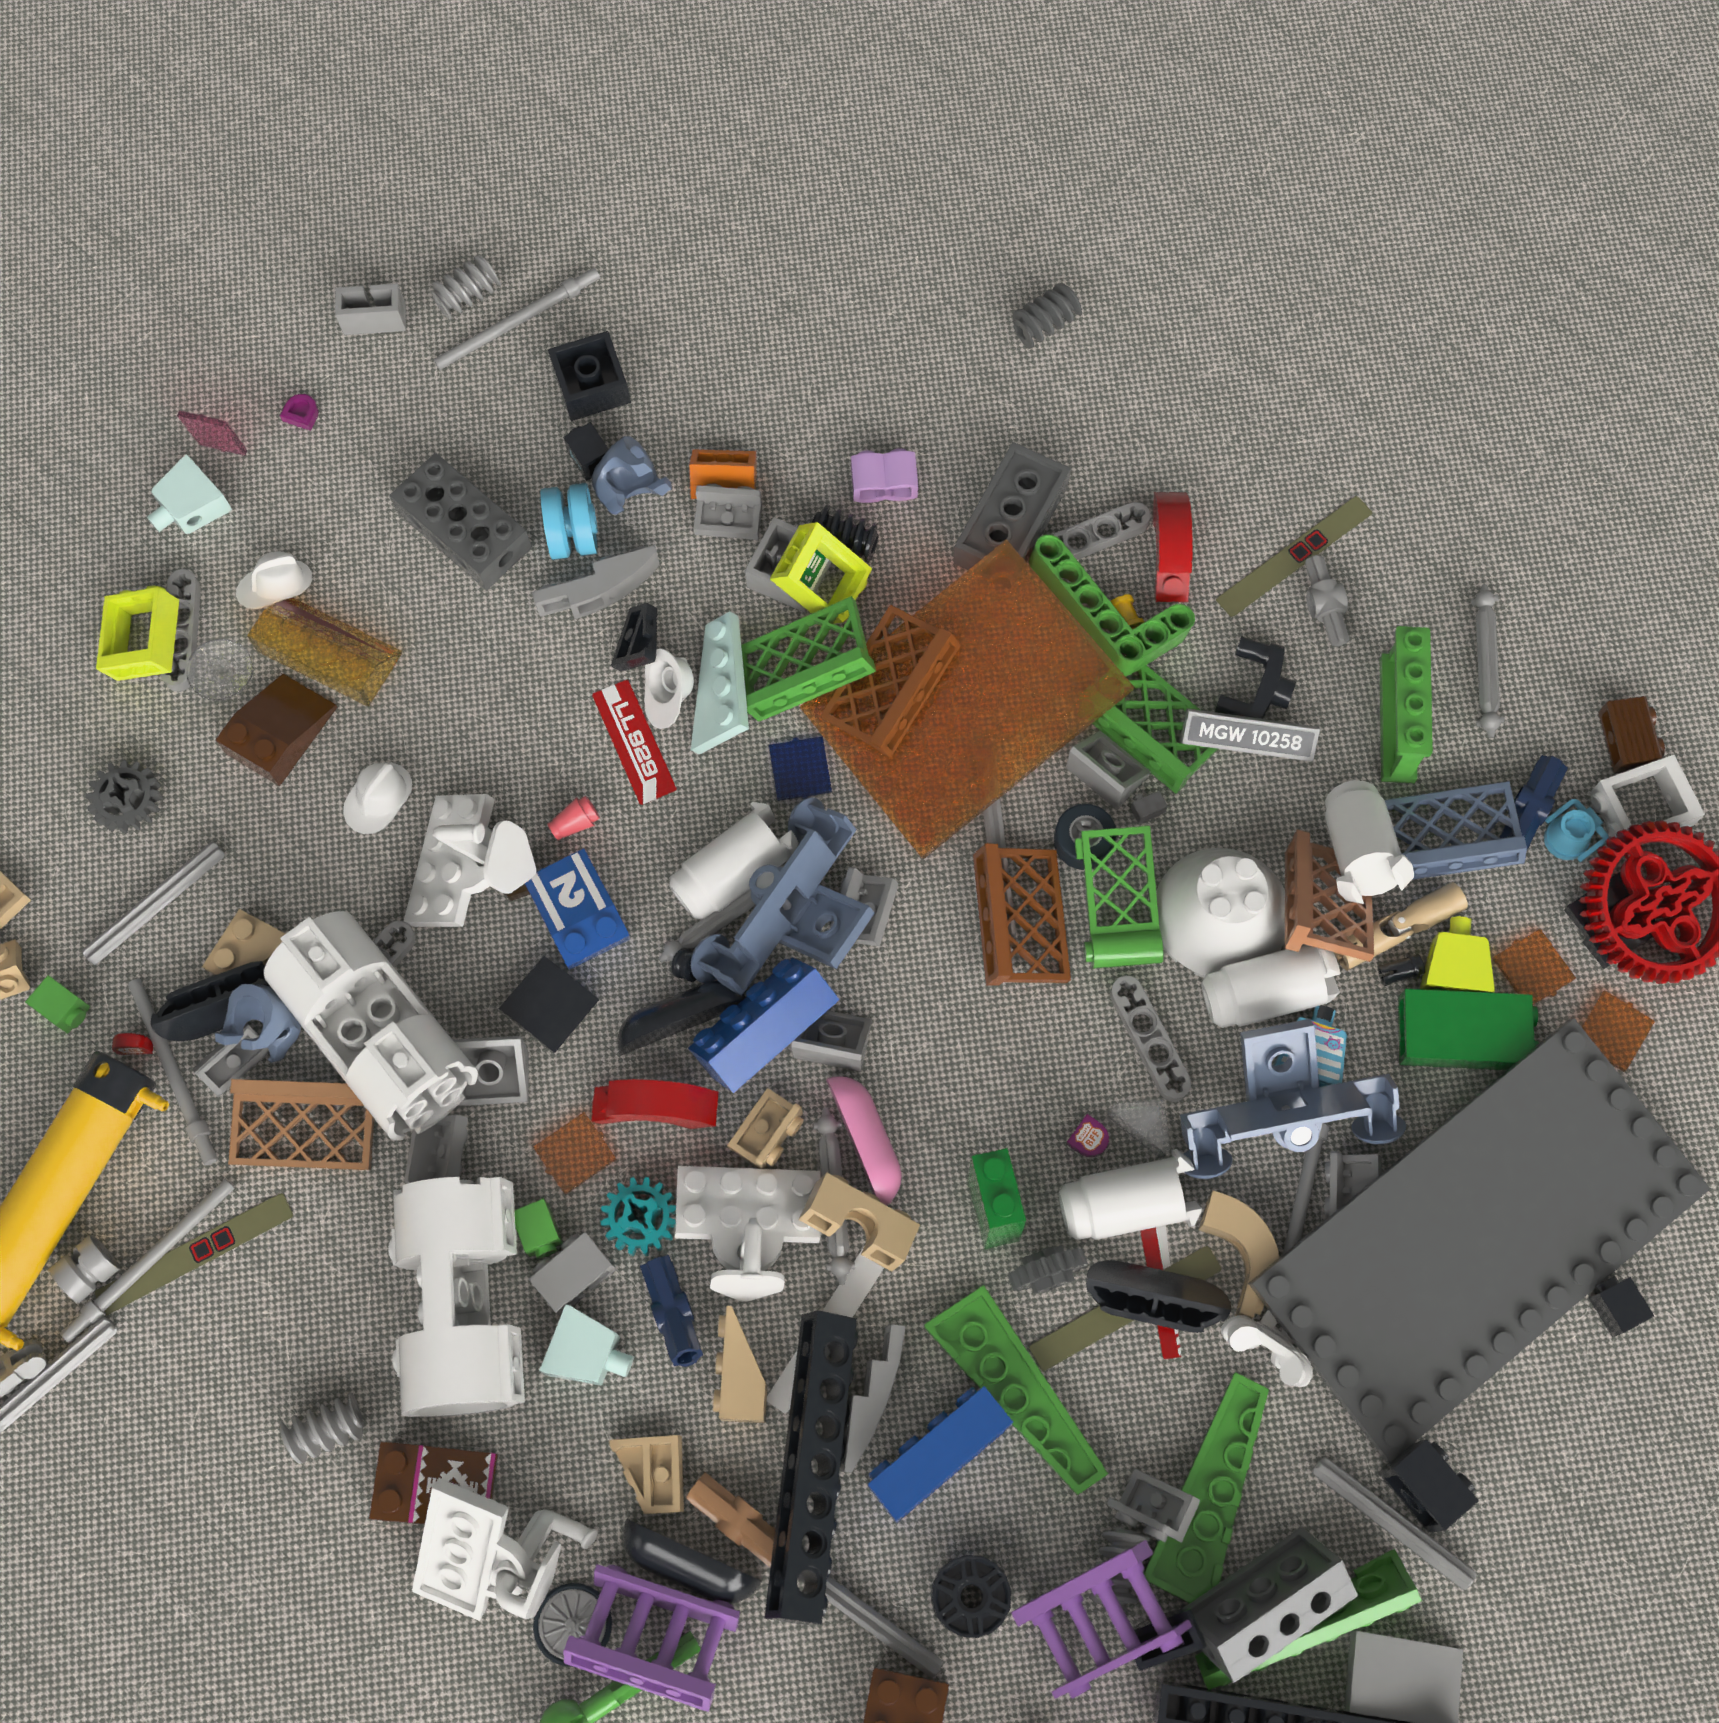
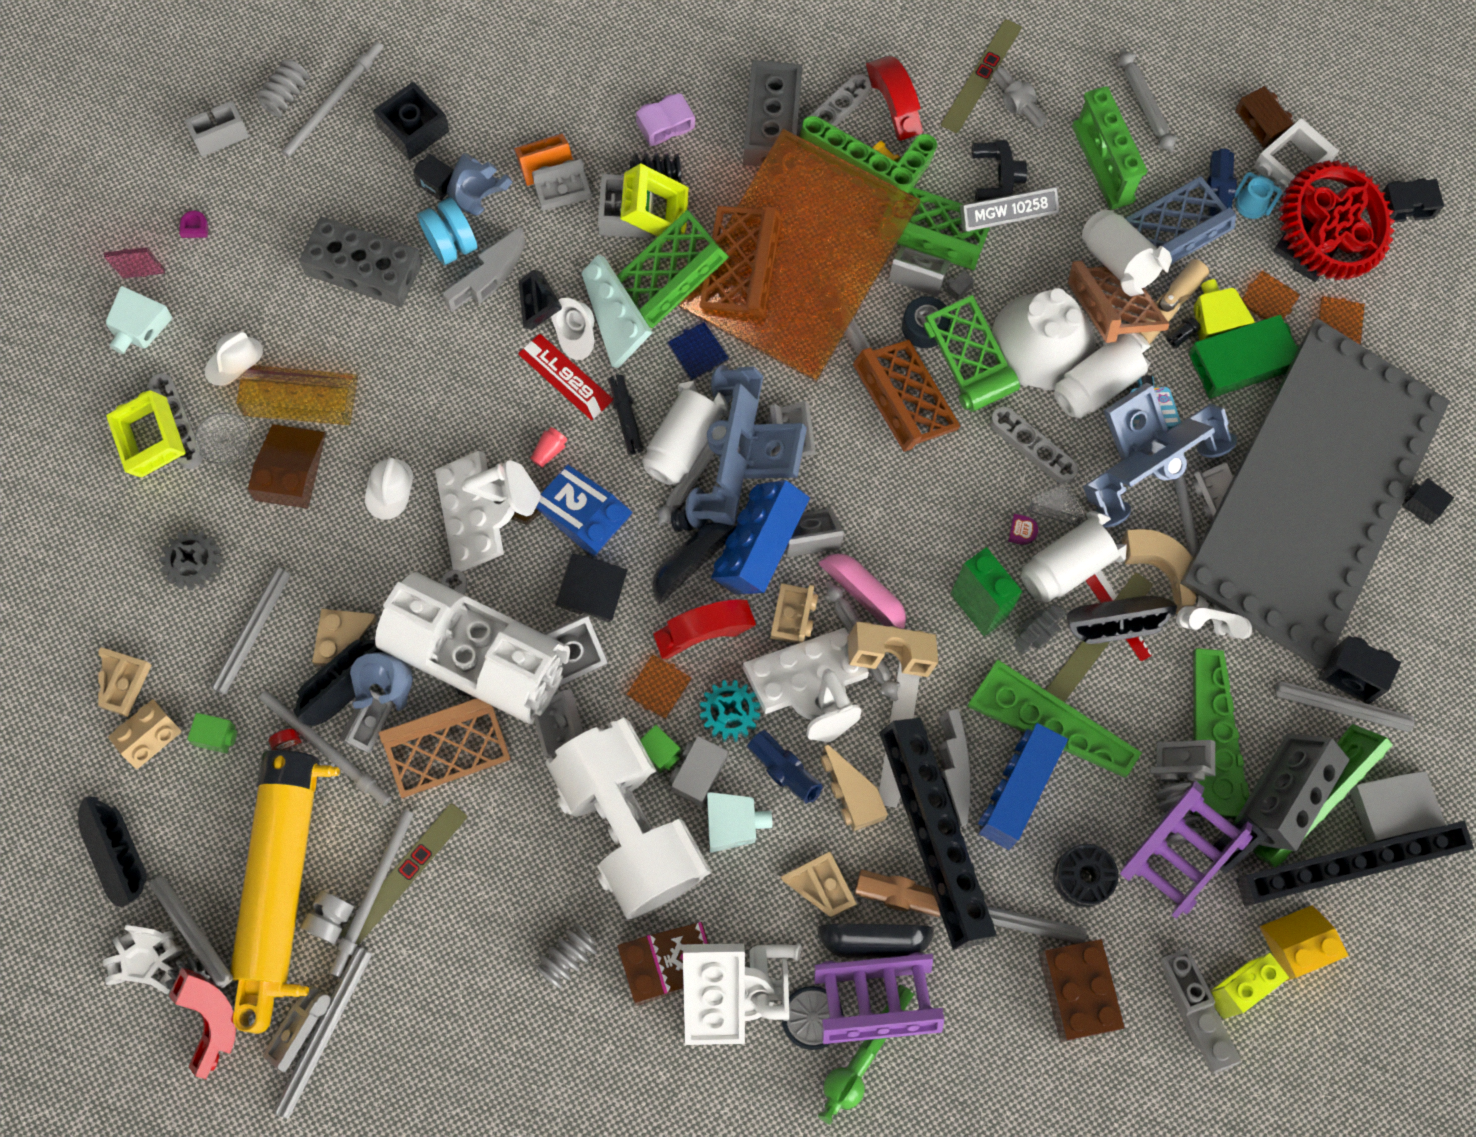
camera: 30 degrees left, 0 degrees up
(682, 801) = (622, 403): none -> black pin

